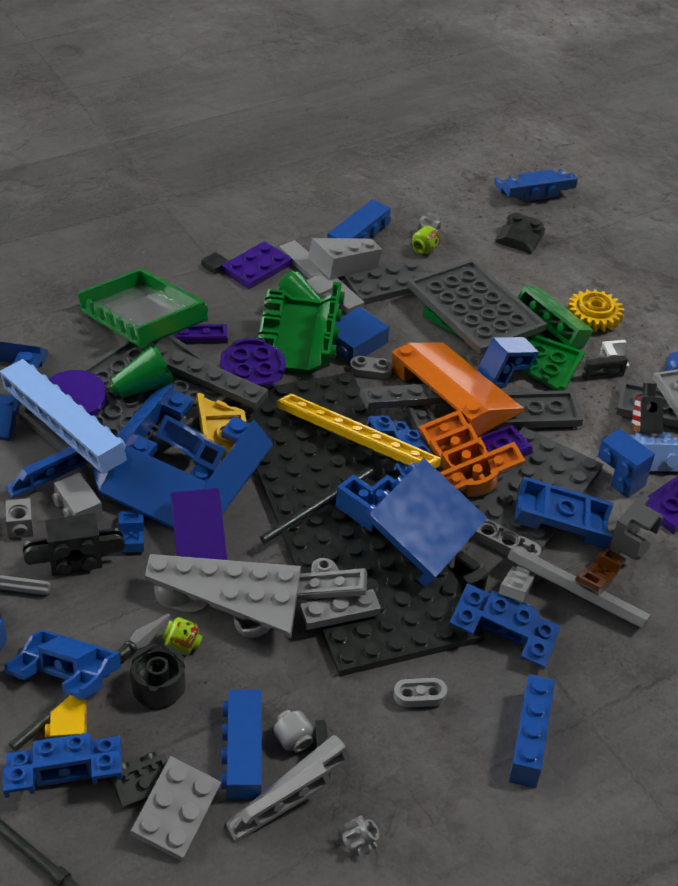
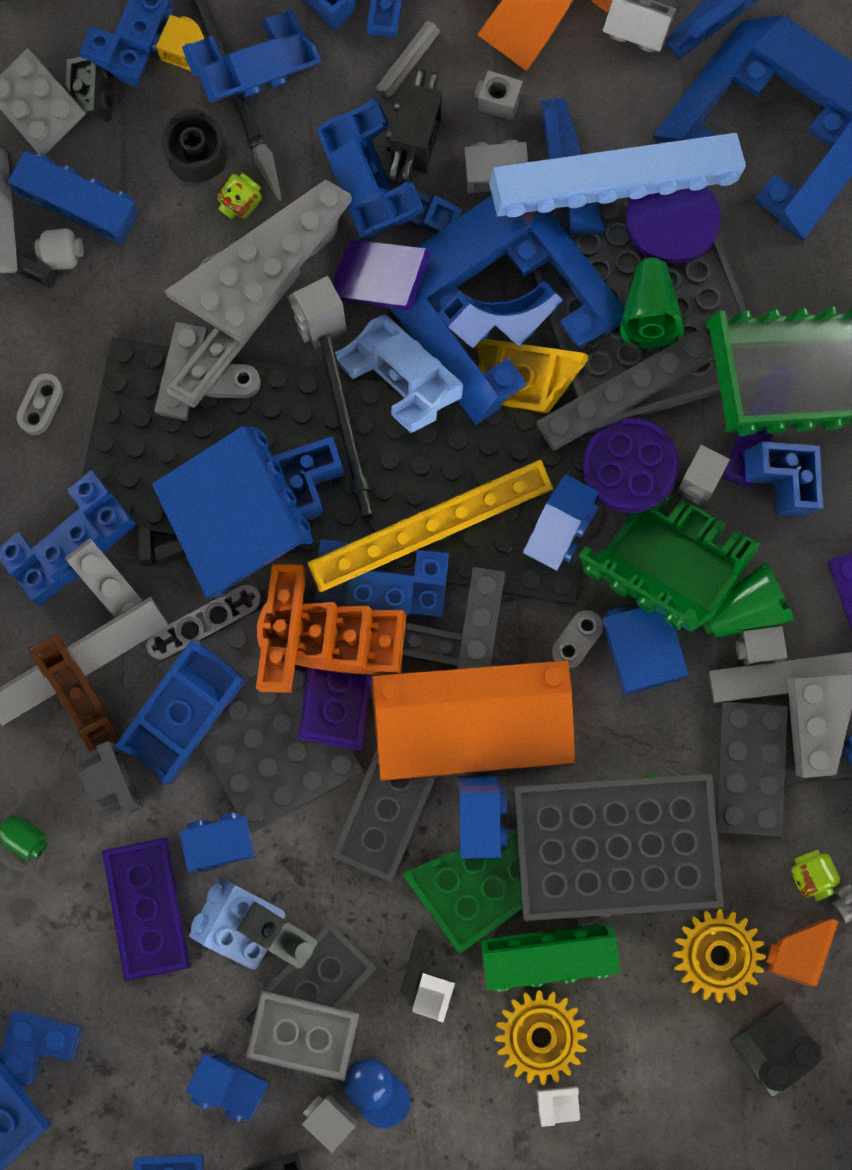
camera: 125 degrees right, 35 degrees up
(125, 567) = (360, 172): none -> blue bracket
(220, 301) = (792, 470): none -> blue brick
(238, 326) = (702, 476): none -> light grey brick
(249, 532) = (318, 312): none -> light grey wedge
(258, 484) = (405, 367): none -> light blue bracket
(311, 370) = (562, 519): none -> brick
(467, 228) = (802, 953): none -> orange slope
(498, 260) = (739, 949): none -> yellow gear
(626, 296) = (558, 1105): none -> white panel

